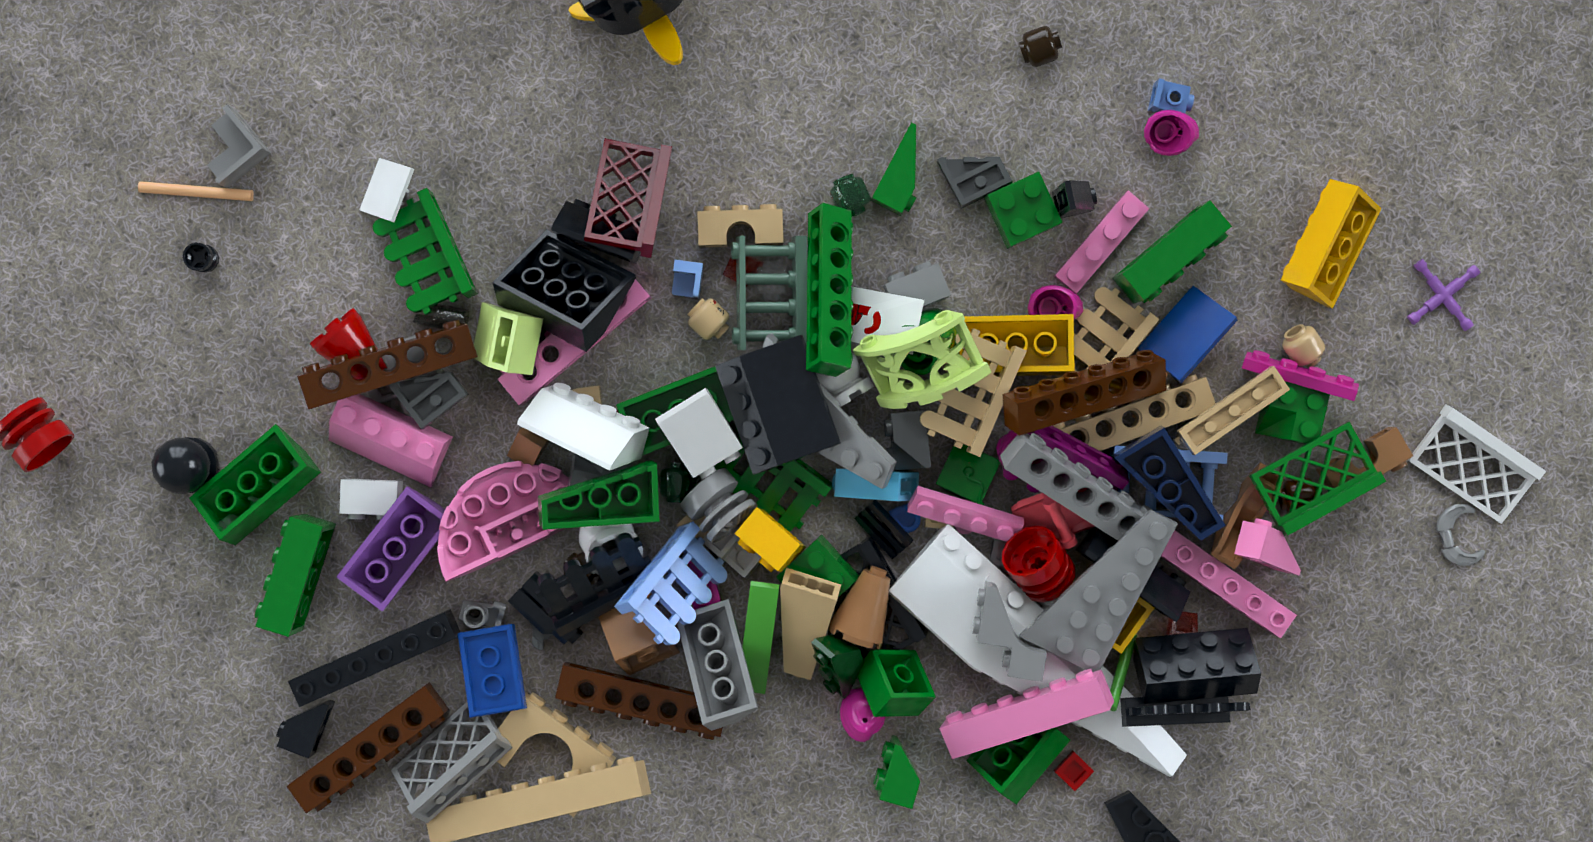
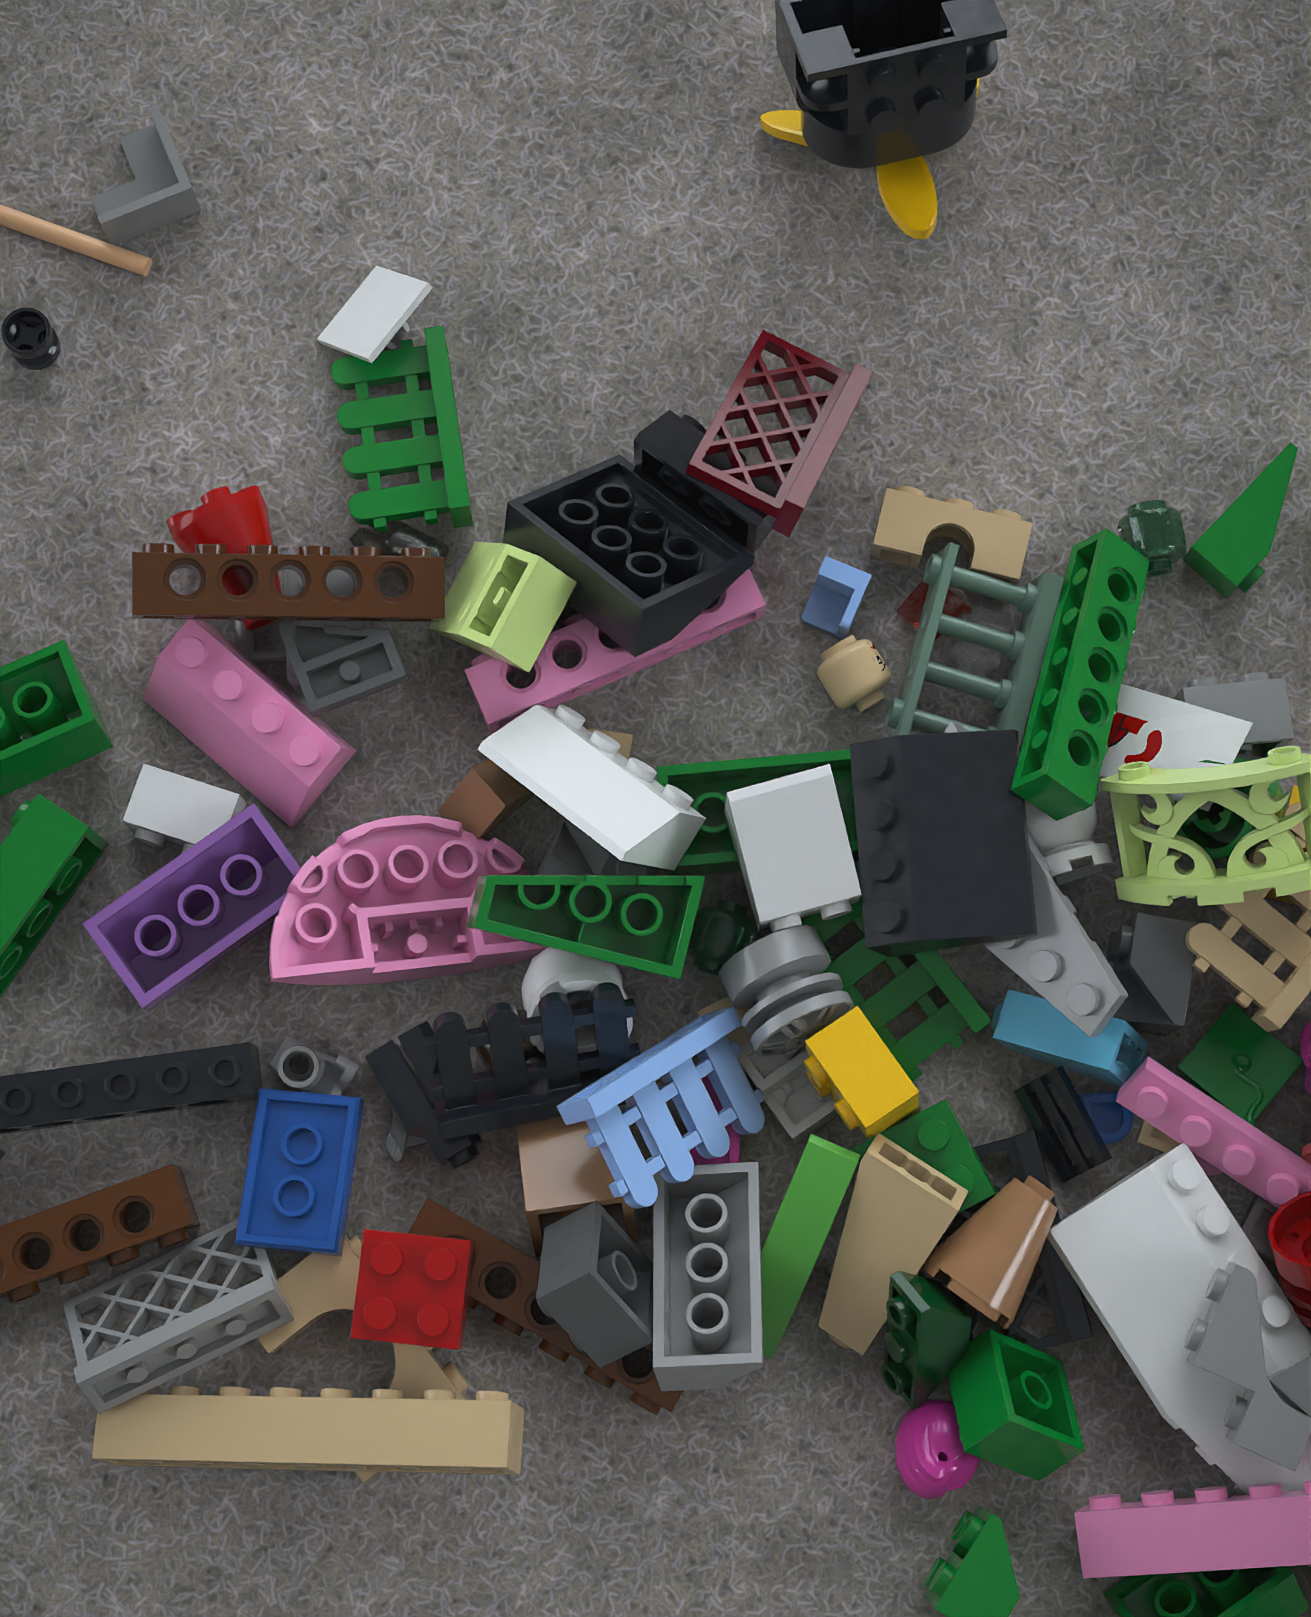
camera: 15 degrees right, 10 degrees down
(568, 716) = (412, 1289): none -> red brick
(662, 687) = (596, 1284): none -> dark grey slope

